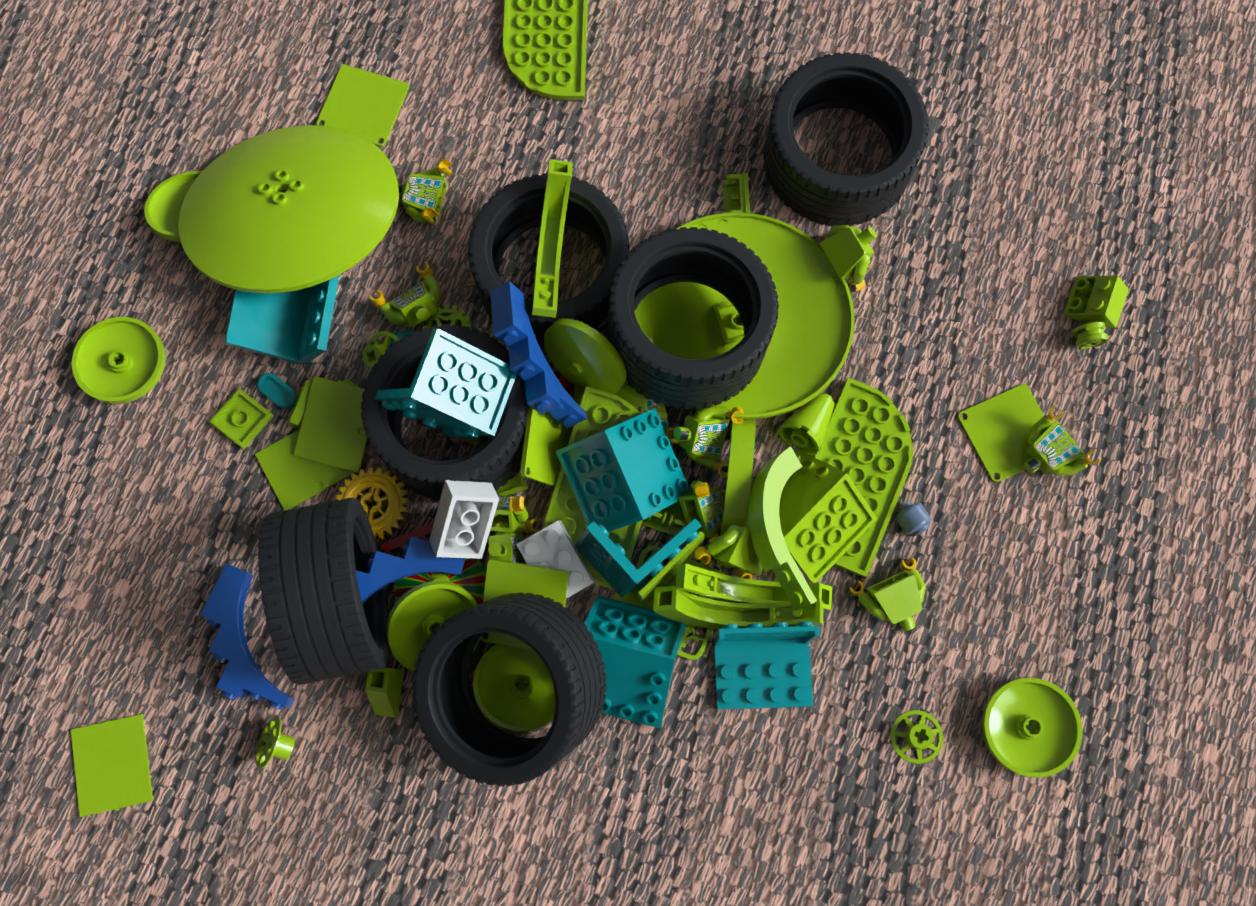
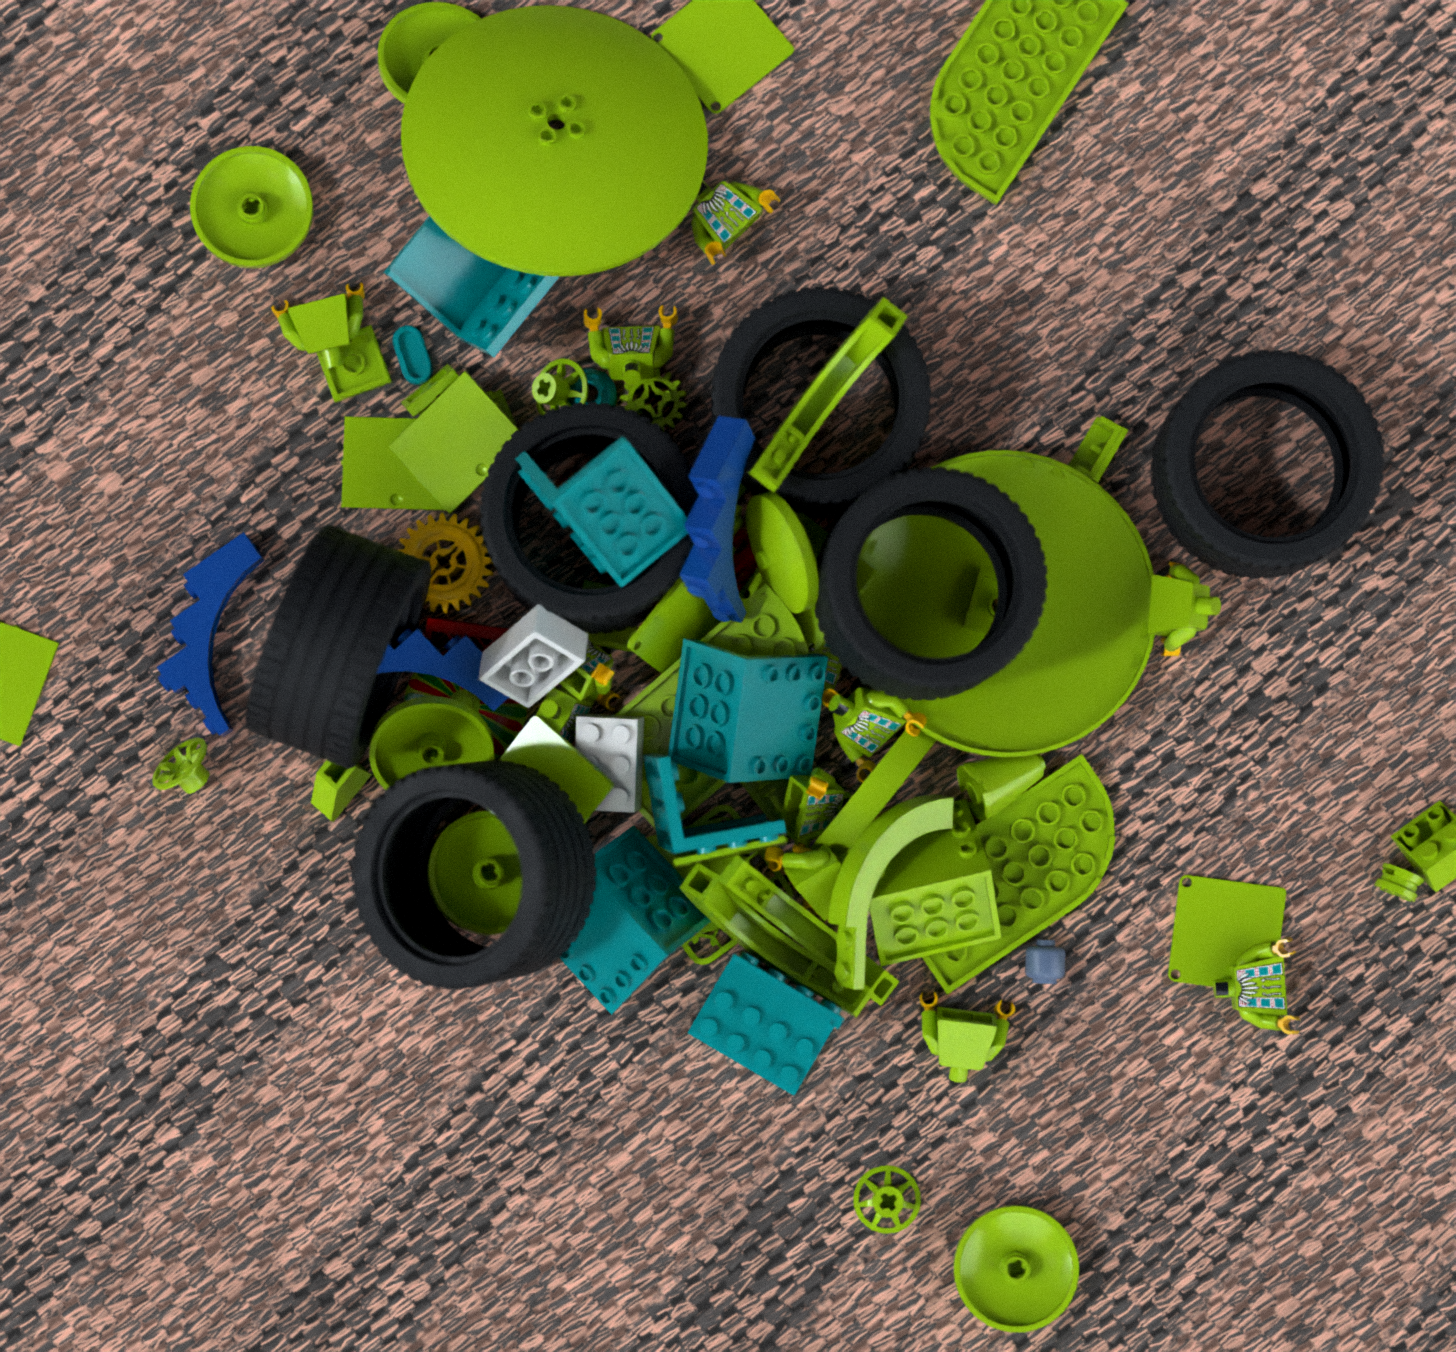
camera: 30 degrees right, 10 degrees up
(205, 402) = (323, 324): none -> lime torso

